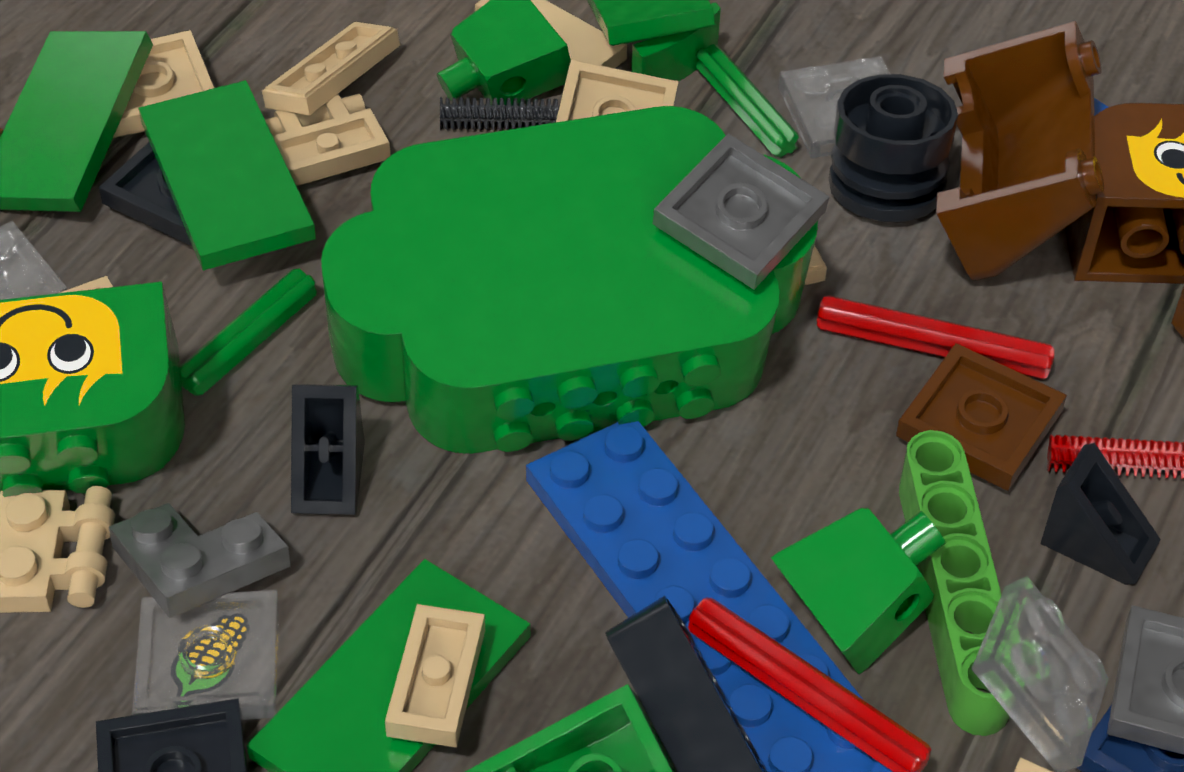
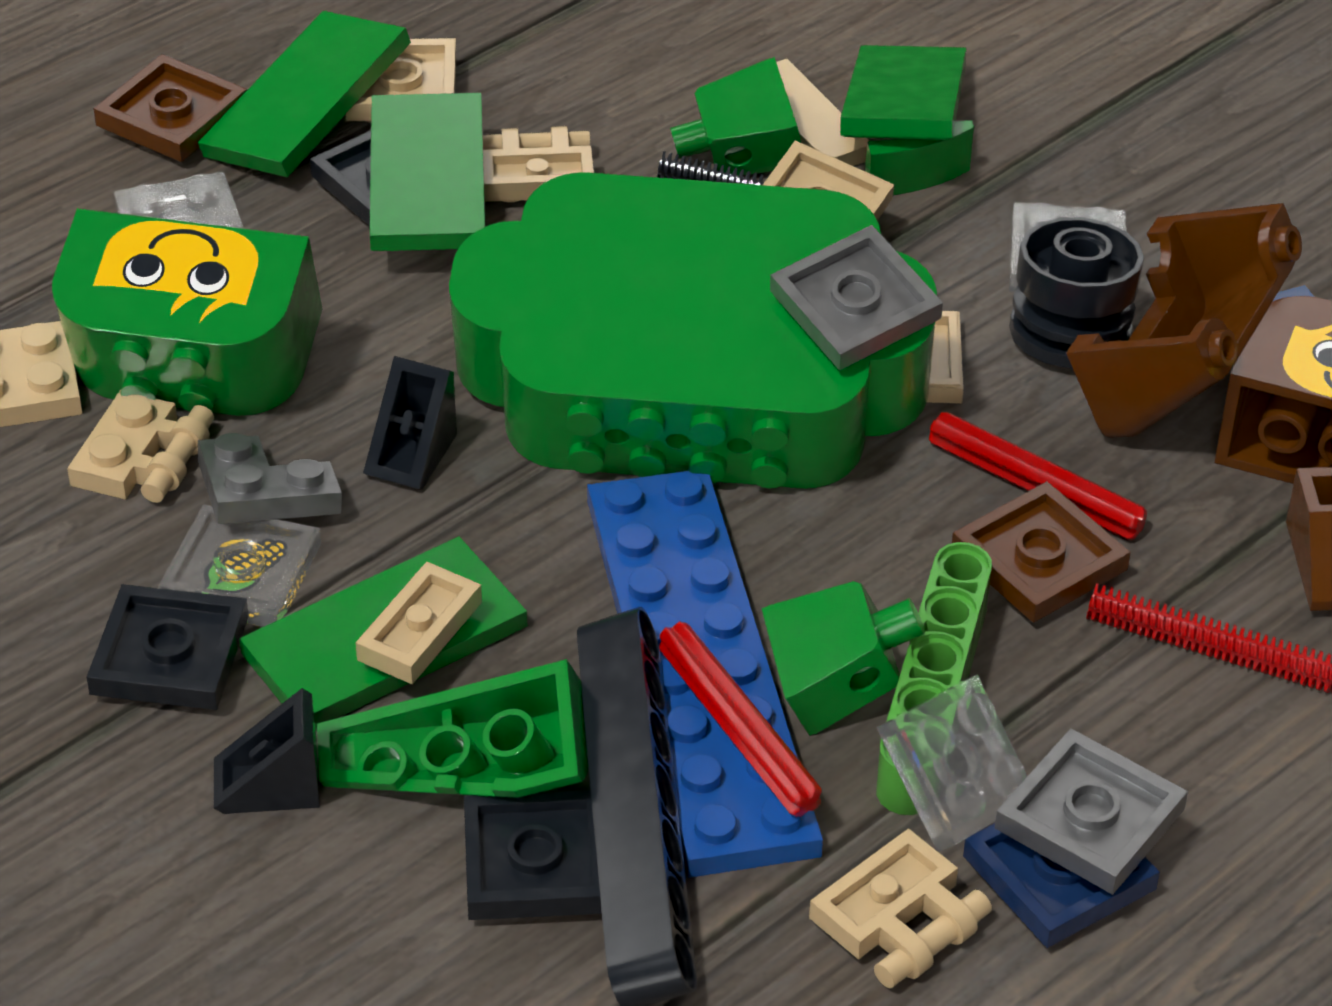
camera: 20 degrees right, 5 degrees down
(247, 332) = (383, 317): green axle -> none
(330, 68) = (572, 101): tan tile -> none
(747, 101) = (968, 222): green axle -> none
(1099, 520) = (1098, 662): black slope -> none

